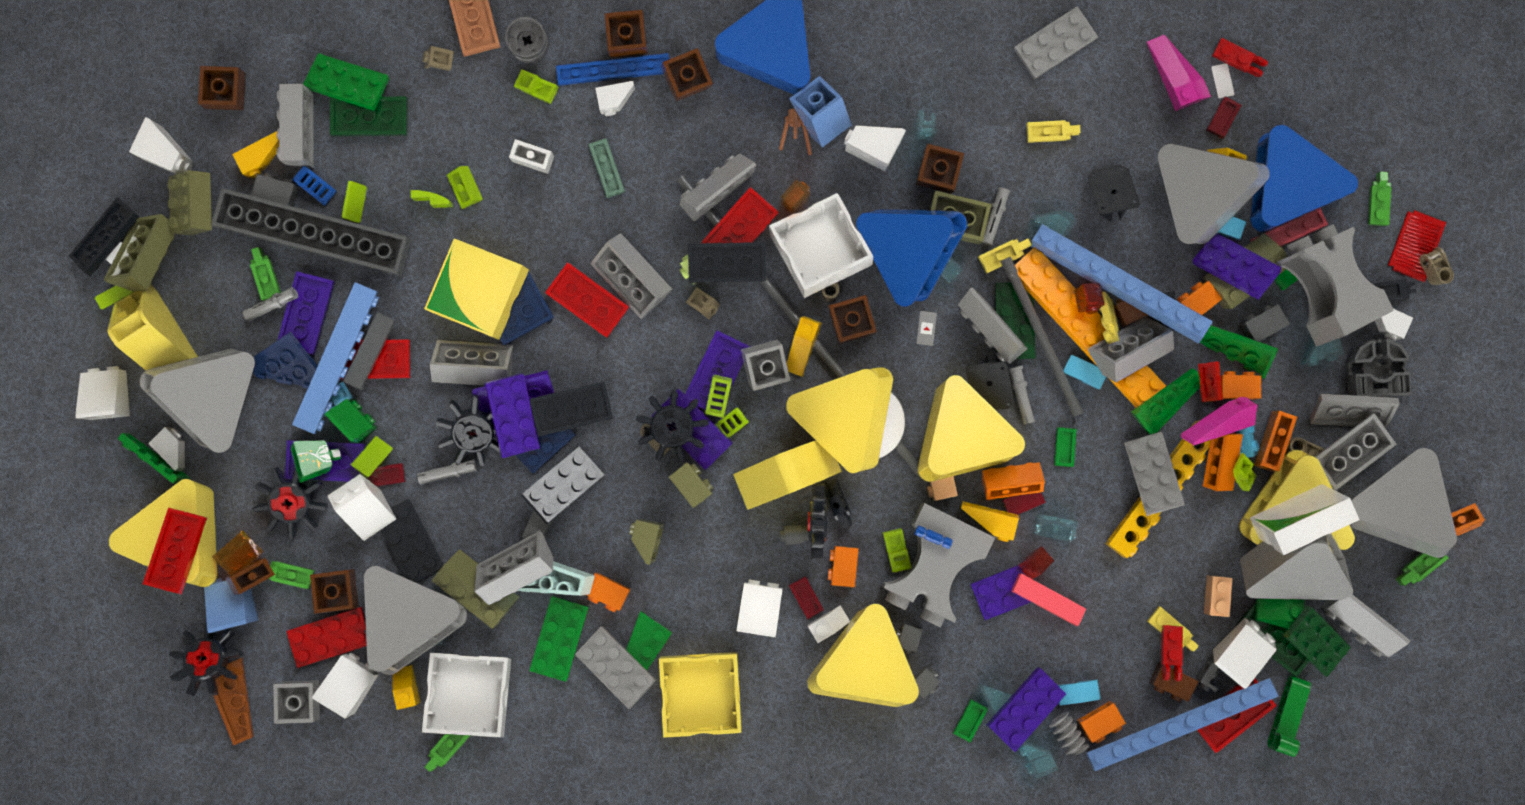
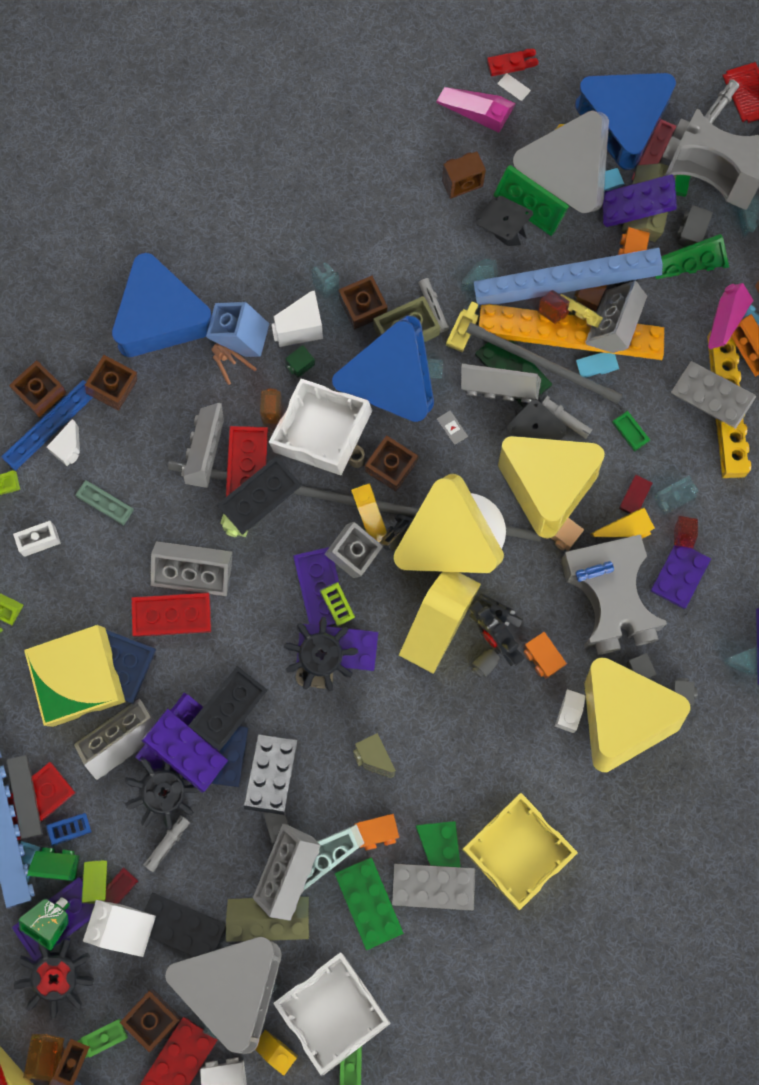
camera: 40 degrees left, 10 degrees down
(370, 390) = (50, 829): none -> blue slope
(691, 484) = (373, 686): olive brick -> none
(703, 303) = (265, 543): dark tan bracket -> none
(724, 421) = (366, 605): lime slope -> none
(759, 608) = (508, 742): white slope -> none
(806, 597) = (536, 705): dark red tile -> none
(809, 379) = (395, 534): none -> black wing
(849, 177) = (299, 362): none -> dark green brick
(896, 550) = (573, 611): lime slope -> none
(970, 720) = (742, 695): green tile -> none
(1013, 480) = (615, 485): orange brick -> none
(1048, 599) = (719, 552): coral tile -> none
(1051, 131) = (421, 214): light yellow hinge -> none
(1055, 42) = (371, 151): light grey plate -> none
(1112, 125) = (463, 174): none -> reddish brown brick
(1148, 181) = (546, 207): none -> green plate
(1163, 405) = (674, 343): green wing -> none
(1210, 382) = (694, 297): red panel -> none
(1223, 117) = (537, 110): dark red tile -> none
(1243, 385) = (713, 287): orange brick -> none
(1379, 200) = (697, 82): bright green hinge -> none
(1389, 232) = (724, 98): none -> light grey pin

